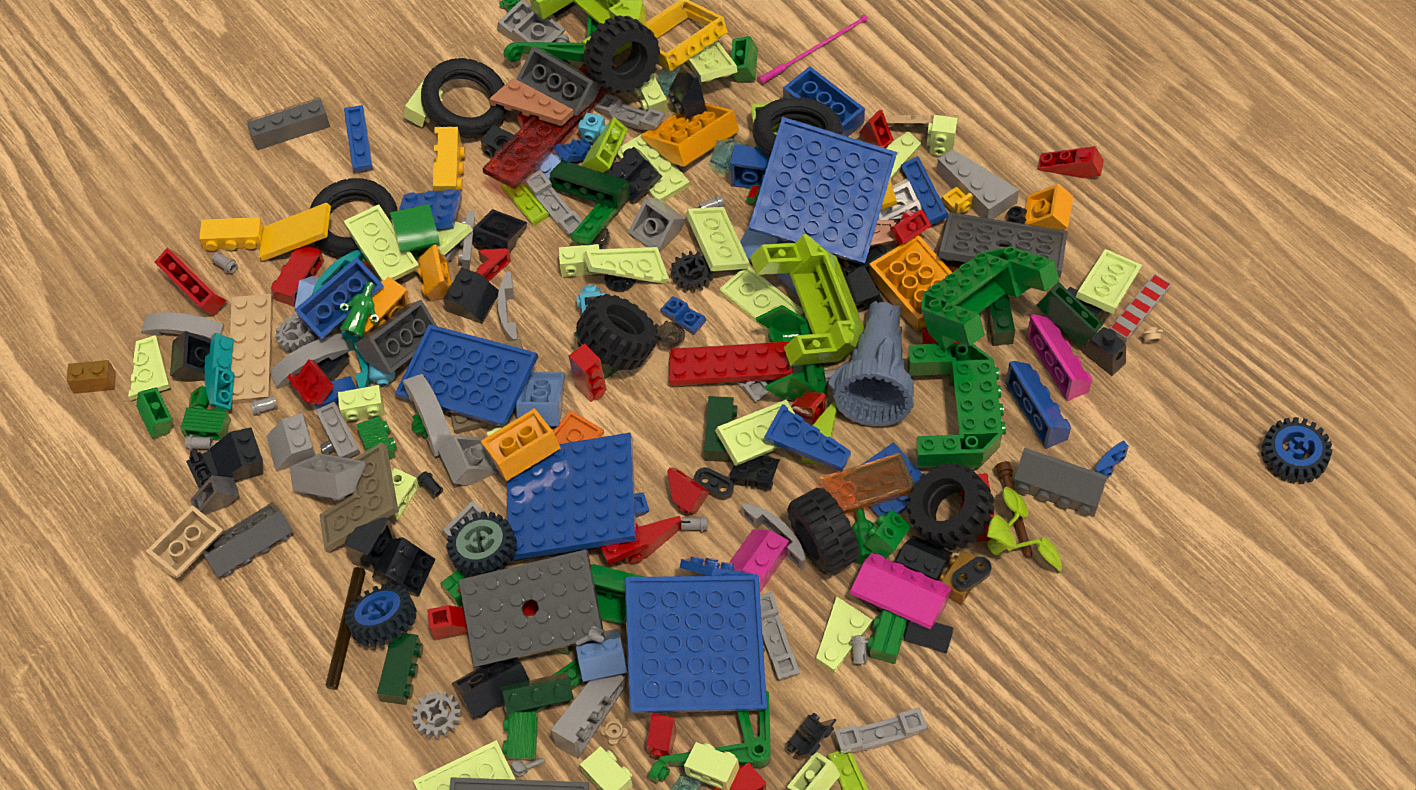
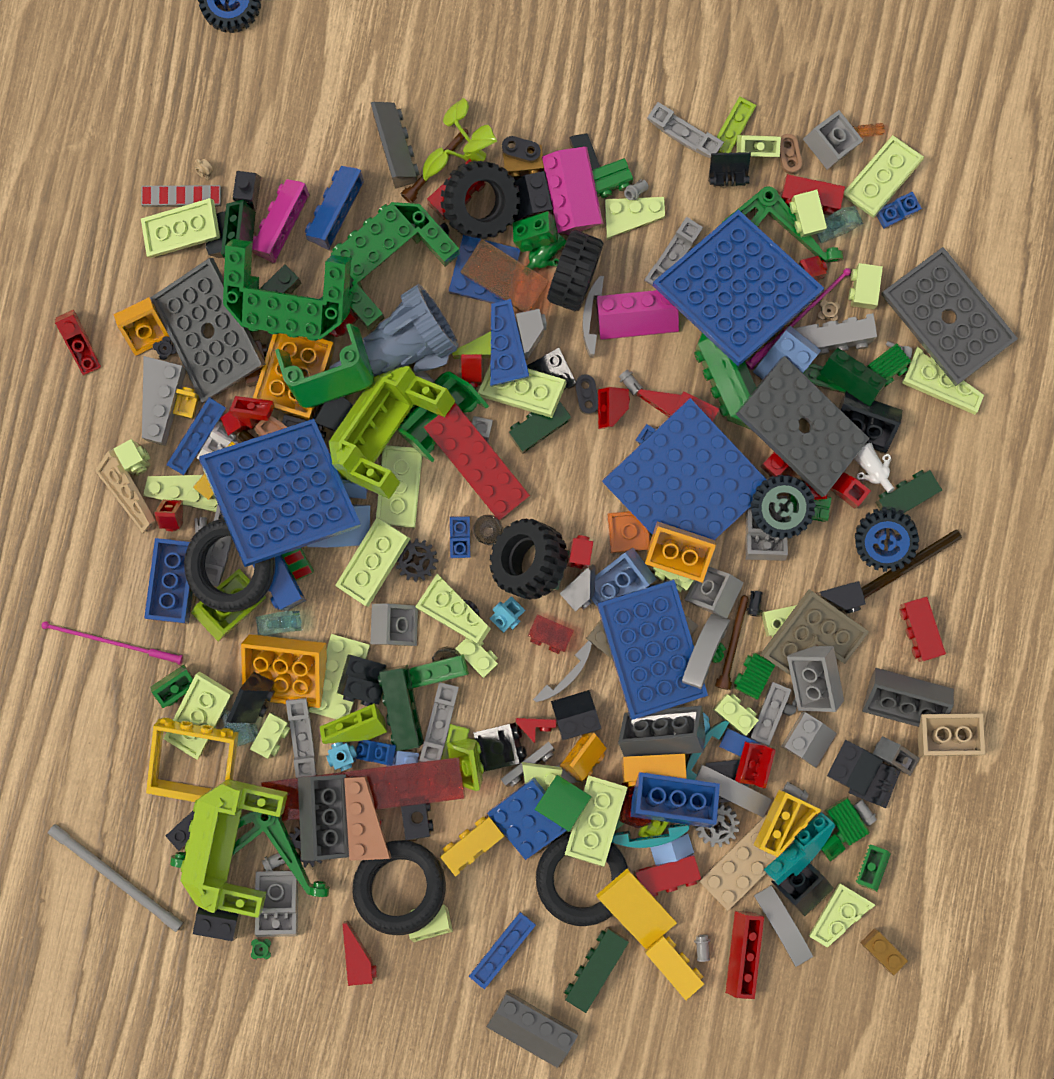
camera: 135 degrees left, 25 degrees up
(249, 370) = (783, 822): none -> yellow wedge
(282, 182) = (596, 969): none -> dark green brick
(286, 592) = (922, 629): none -> red brick
(361, 306) = (683, 766): green piece -> none
(394, 417) = (724, 679): none -> reddish brown piece
(404, 566) = (834, 562): black slope -> none
(441, 48) = (358, 961): none -> red slope
(441, 722) = (916, 432): light grey gear -> none
(447, 655) = (876, 471): none -> white piece
(505, 193) = (470, 762): none -> lime slope
(548, 320) = (550, 634): none -> clear red bracket
(559, 363) = (581, 589): none -> flat silver slope
(594, 634) = (792, 360): light grey hand -> none
(605, 43) = (268, 770): black tyre -> none
(635, 775) = (762, 353): none -> dark pink piece
(711, 567) = (666, 326): blue wing -> none
(714, 202) = (339, 597): light grey pin -> none
(803, 468) = (531, 329): none -> light grey slope
(880, 303) = (350, 377): none -> green windscreen
(1112, 457) = (348, 125): blue slope -> none

